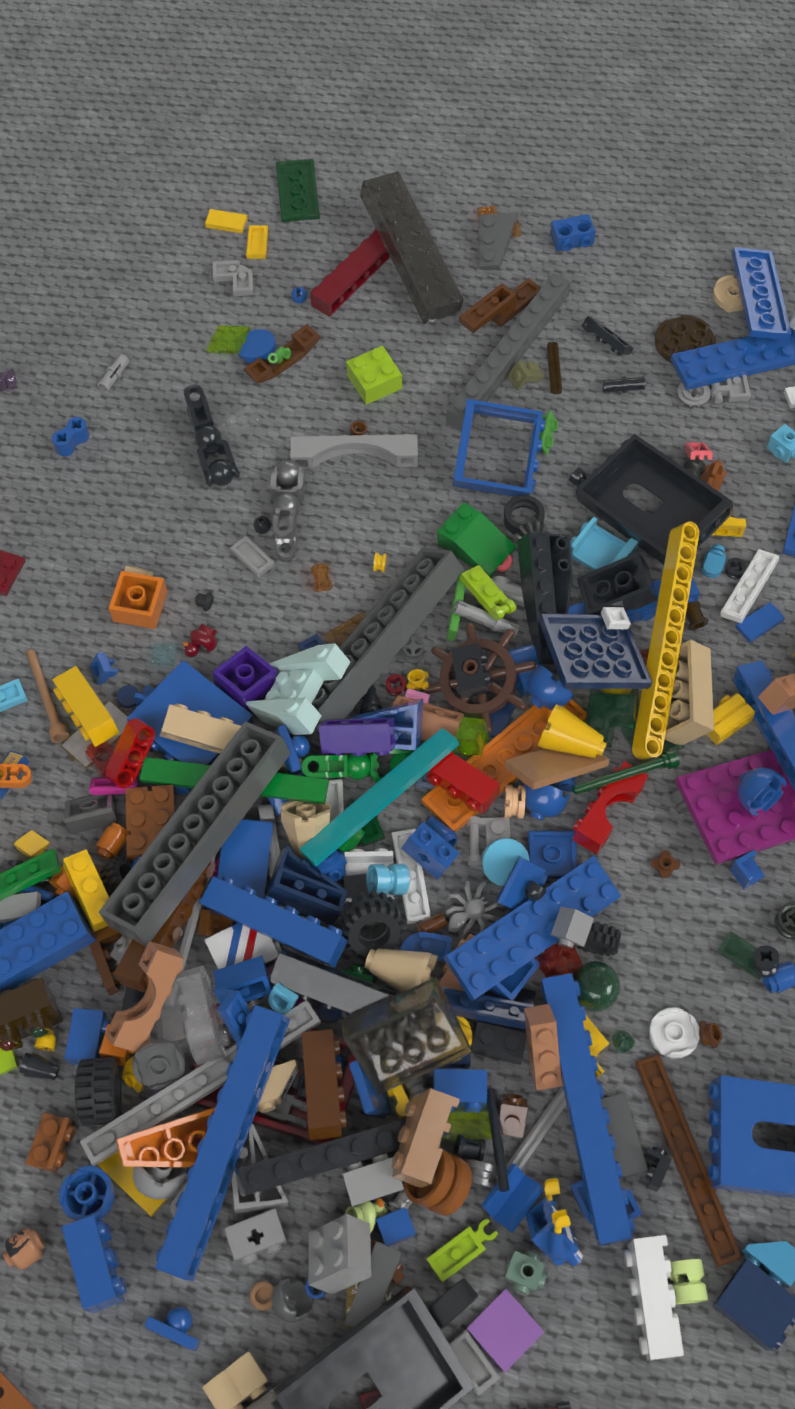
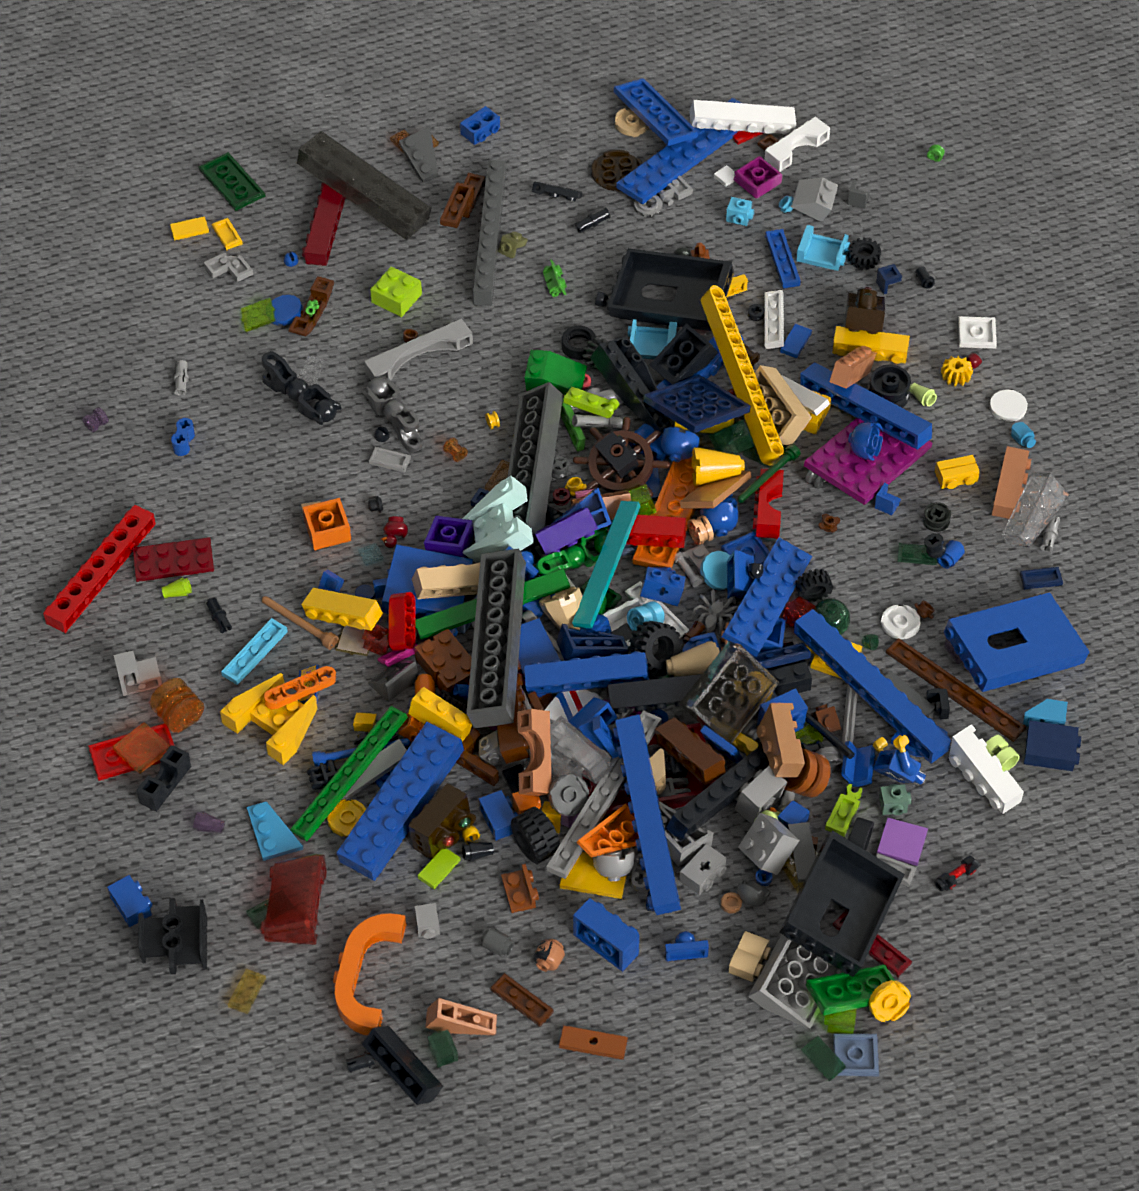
camera: 30 degrees left, 10 degrees down
(87, 1193) = (570, 896): blue cylinder -> none
(282, 999) = (626, 711): medium azure tile -> none
(504, 412) = (546, 267): blue window -> none
(543, 1047) = (822, 662): nougat brick -> none
(554, 368) = (531, 230): dark brown axle -> none
(572, 927) = (794, 581): light grey brick -> none
(615, 618) = (695, 377): white tile -> none
(693, 449) = (679, 242): coral tile -> none
(714, 561) = (739, 313): dark azure arm -> none
(724, 699) = (810, 400): none -> white tile

